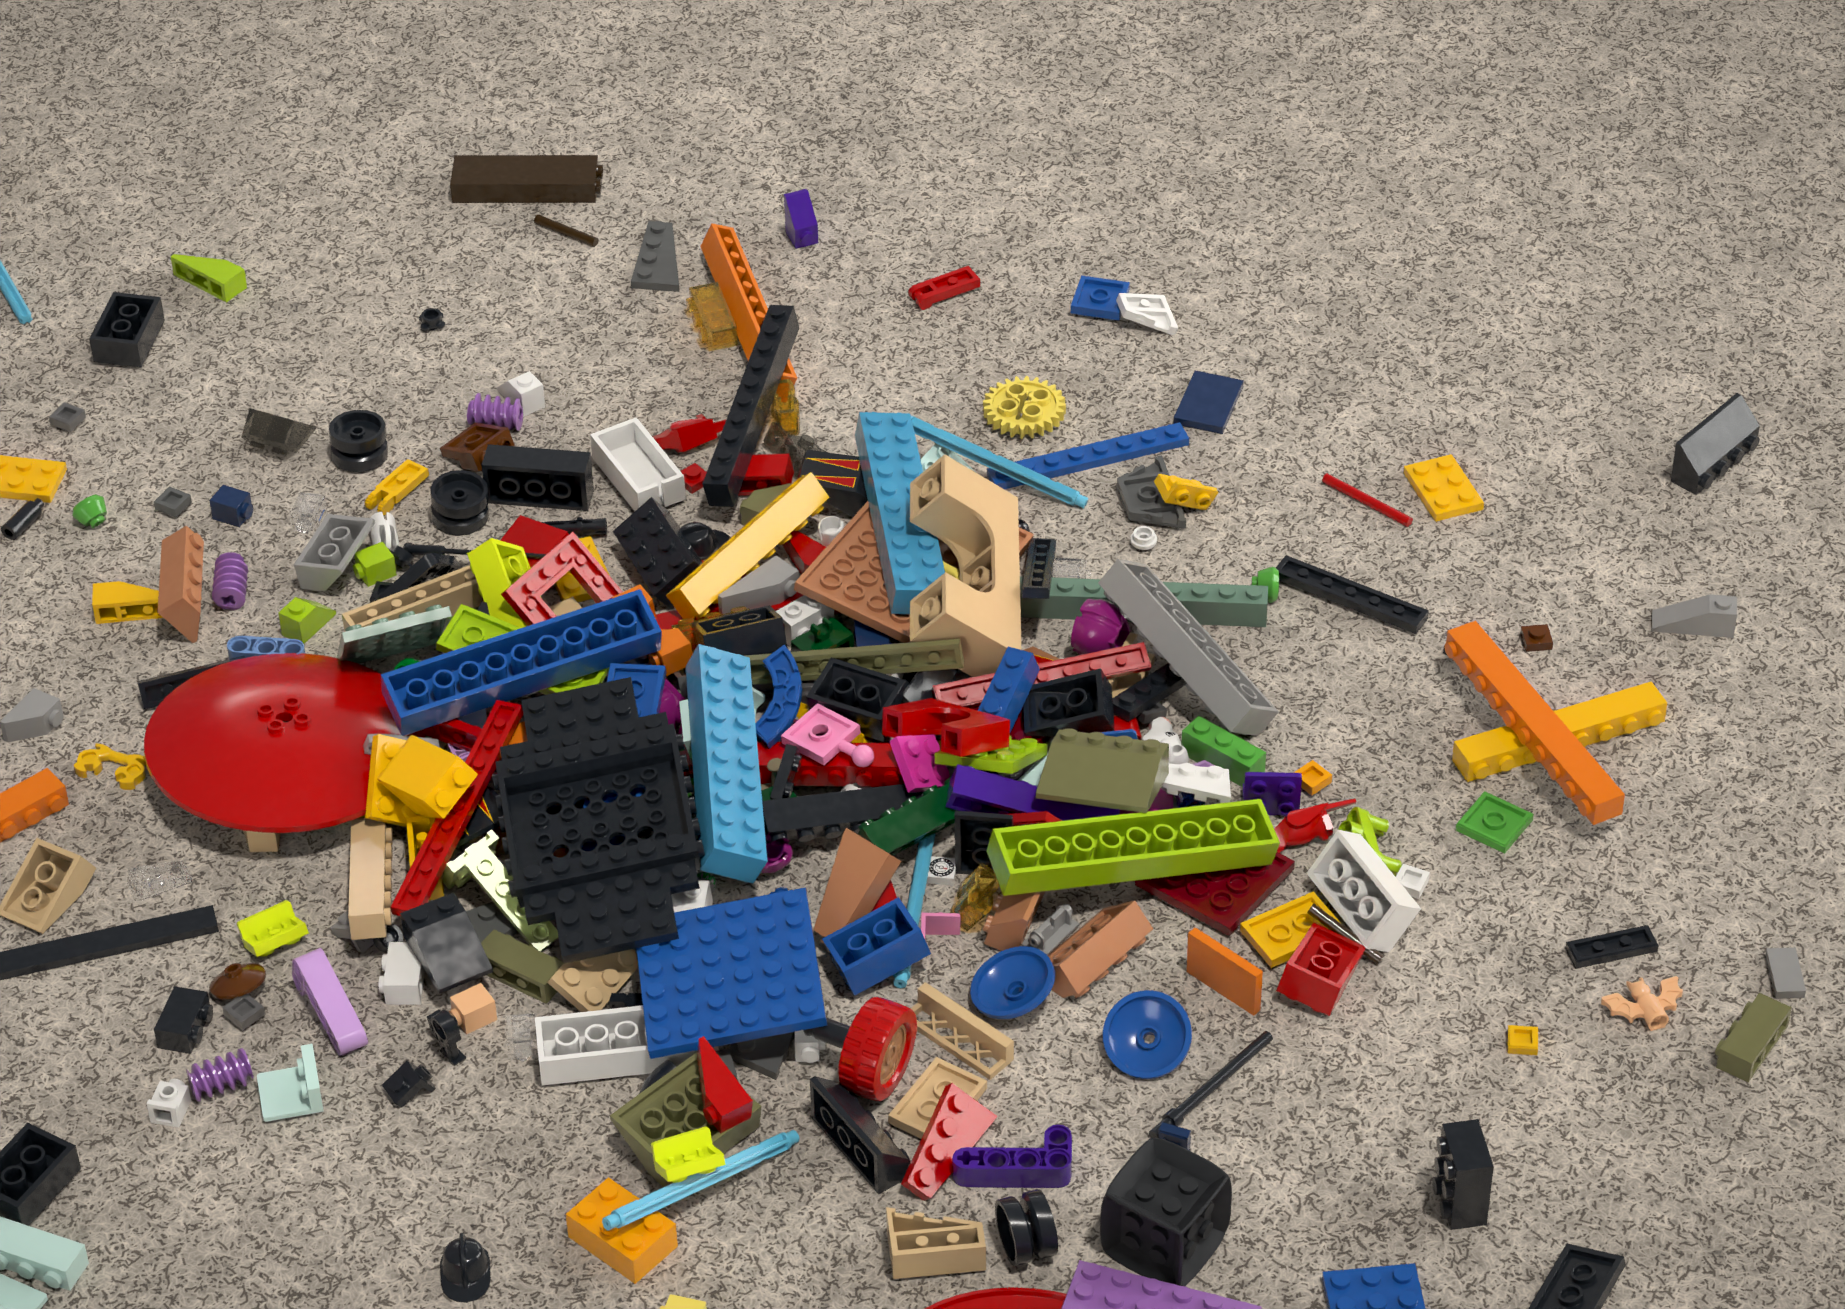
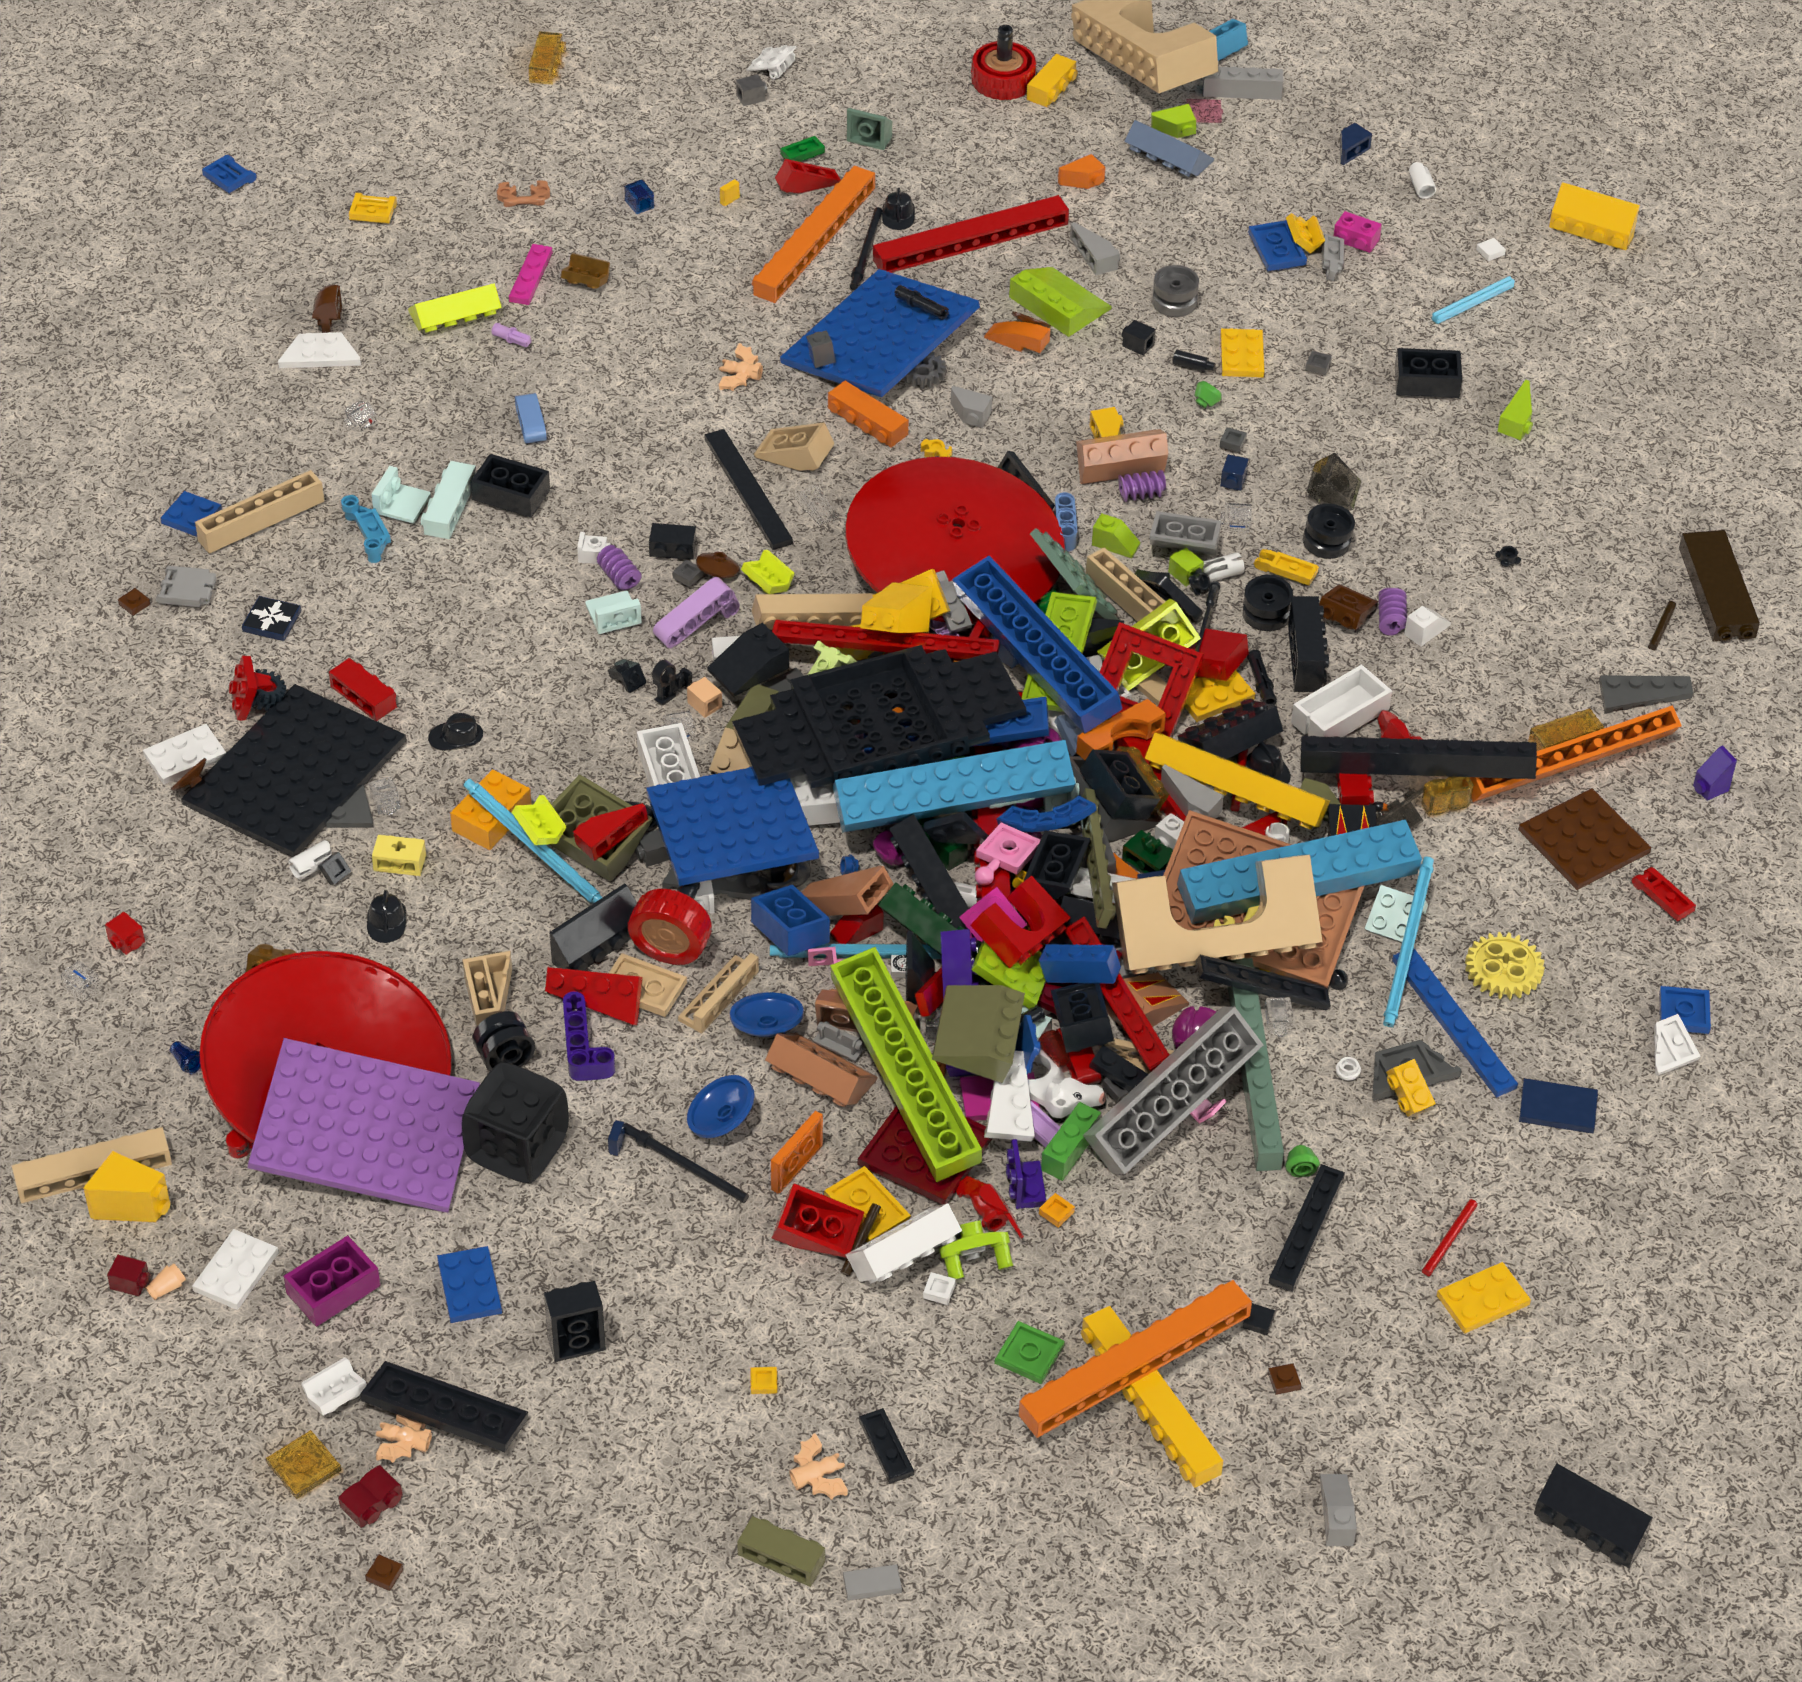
camera: 80 degrees right, 5 degrees up
(856, 330) = (1584, 838): none -> reddish brown plate

